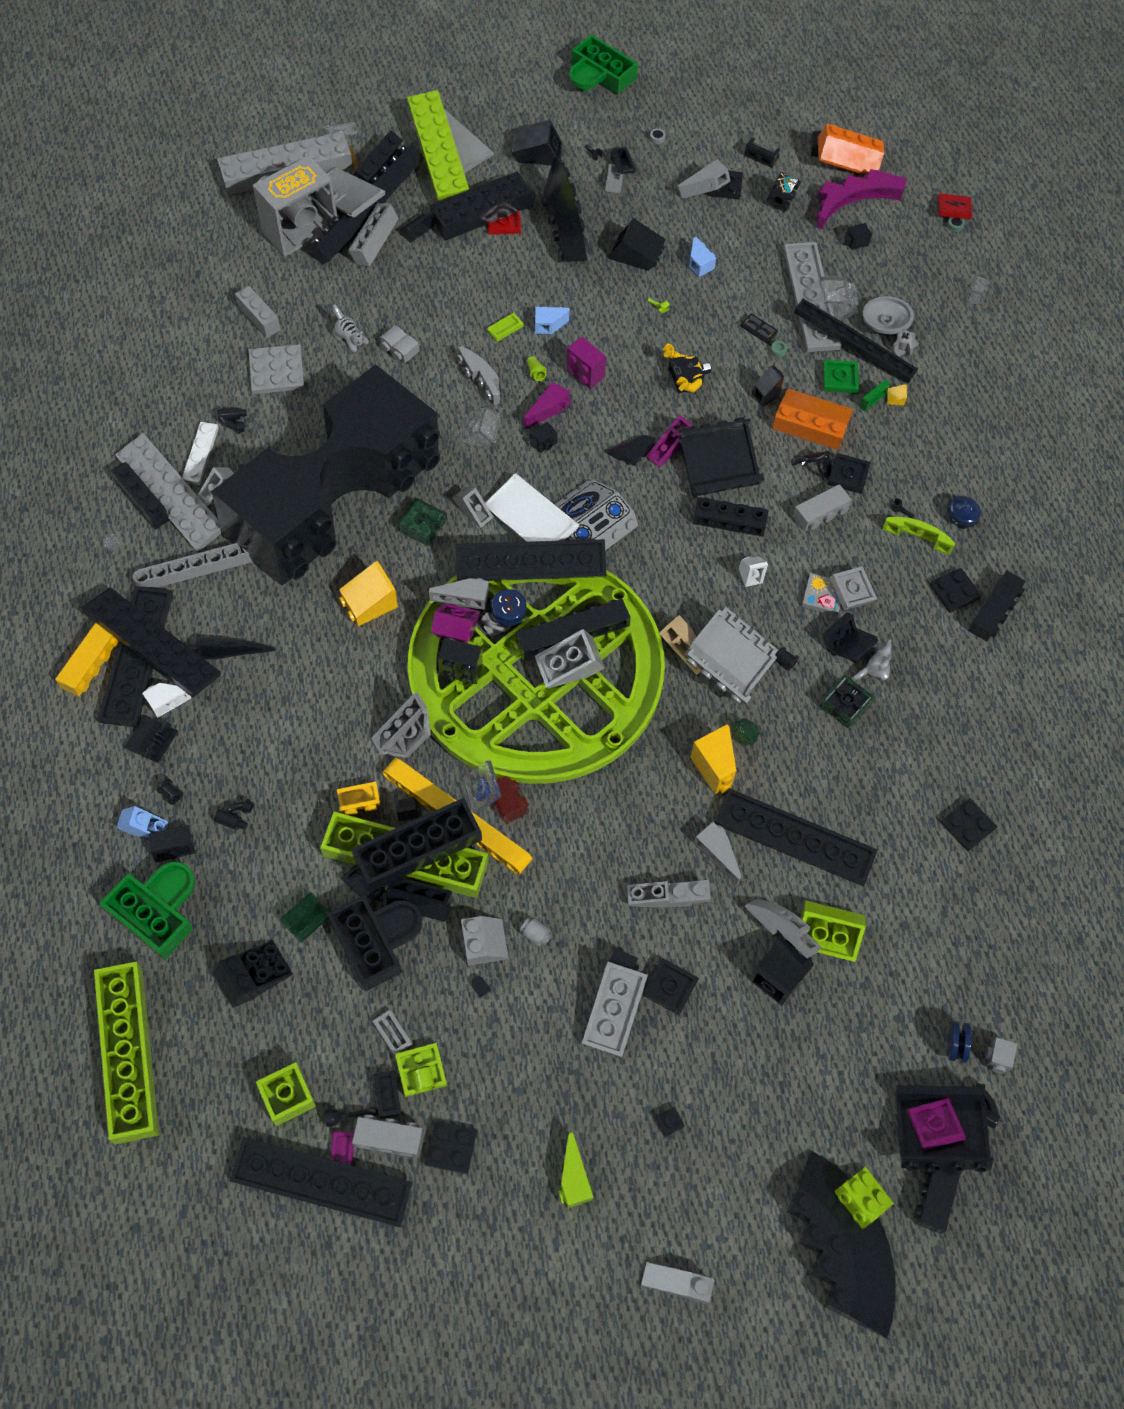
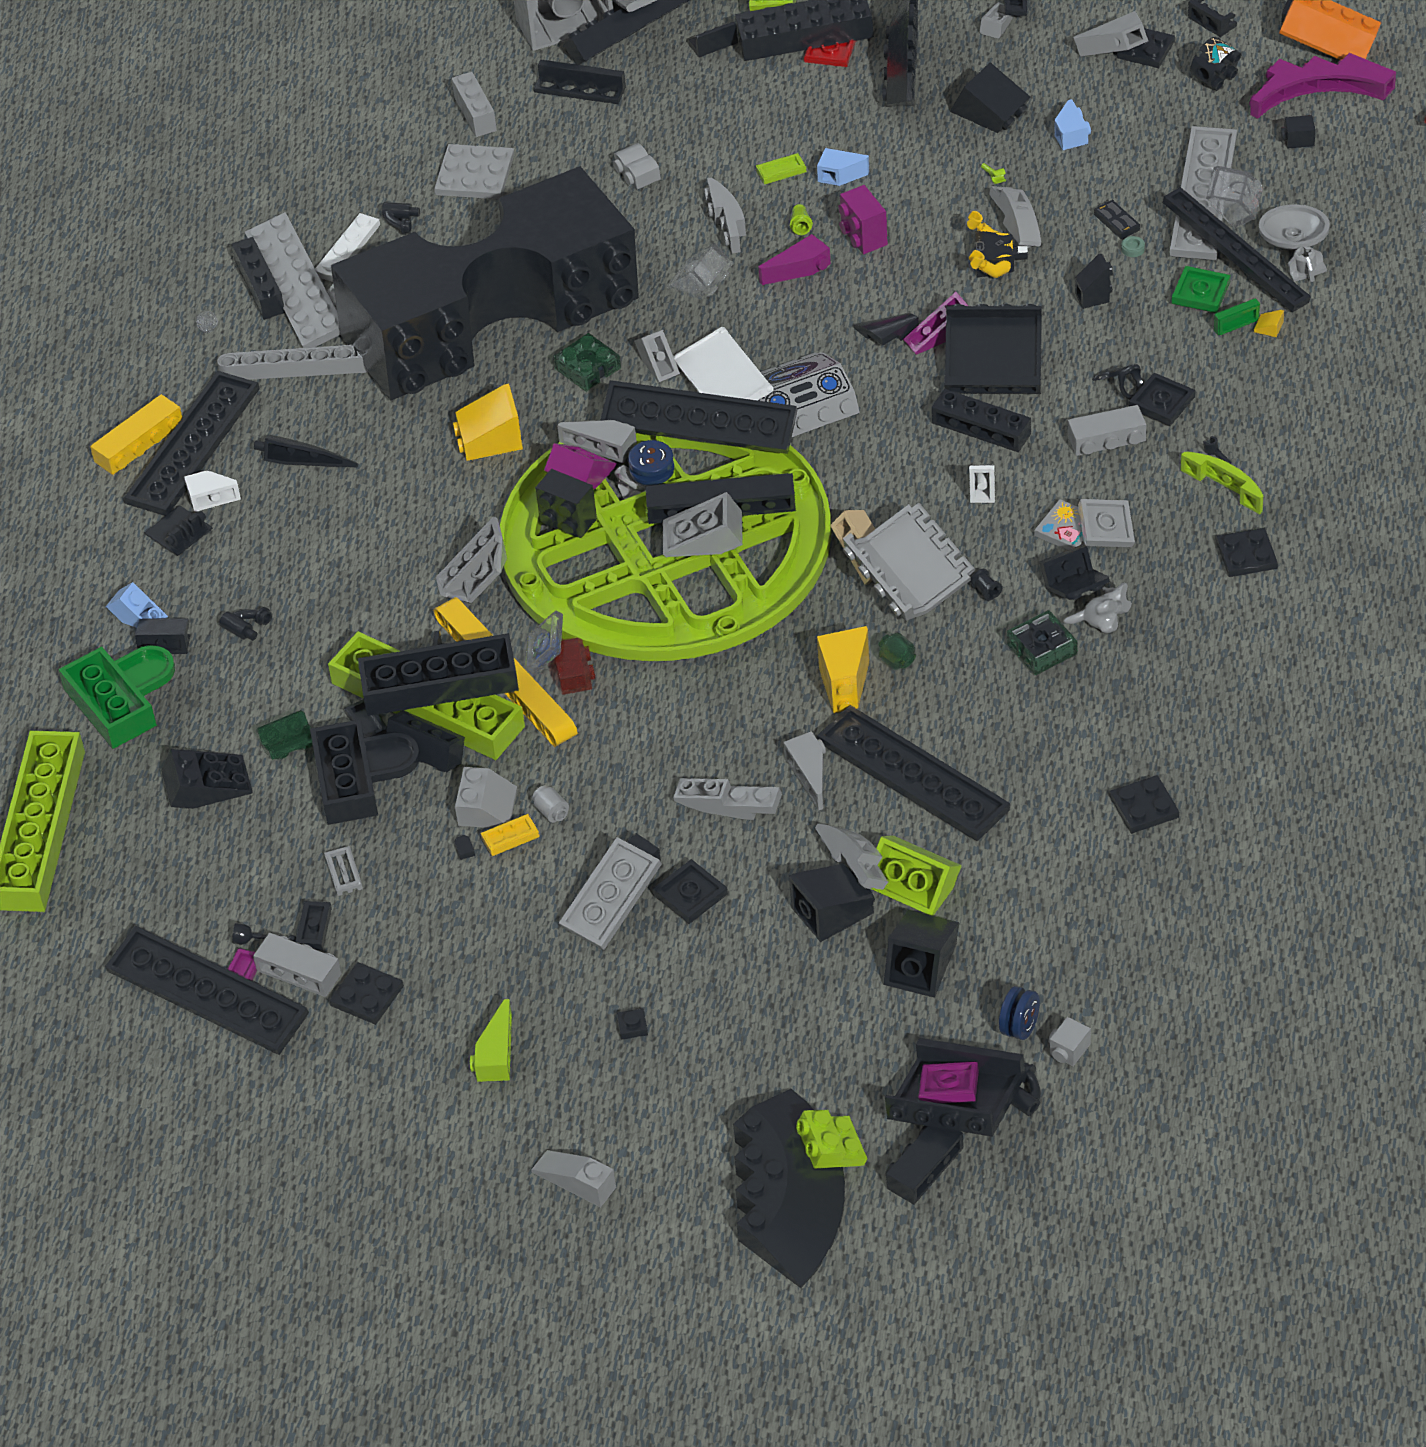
camera: 25 degrees right, 15 degrees down
(151, 642) = (213, 427): black plate -> none
(170, 791) = (178, 581): black bush -> none
(285, 1094) = (198, 896): lime brick -> none
(331, 276) = (582, 78): none -> black fence
(346, 329) = (578, 140): light grey animal -> none
(358, 797) = (396, 630): yellow bracket -> none
(373, 234) = (652, 39): light grey brick -> none
(421, 1070) = (361, 910): lime plate -> none
(513, 967) = (509, 835): none -> yellow plate
(543, 437) = (777, 295): black brick -> none
(694, 338) = (1019, 215): none -> light grey slope
(812, 419) = (1140, 331): orange slope -> none
(864, 1001) = (920, 953): none -> black slope
(964, 511) = (1297, 466): dark blue hair -> none
(997, 605) = (1291, 576): black brick -> none

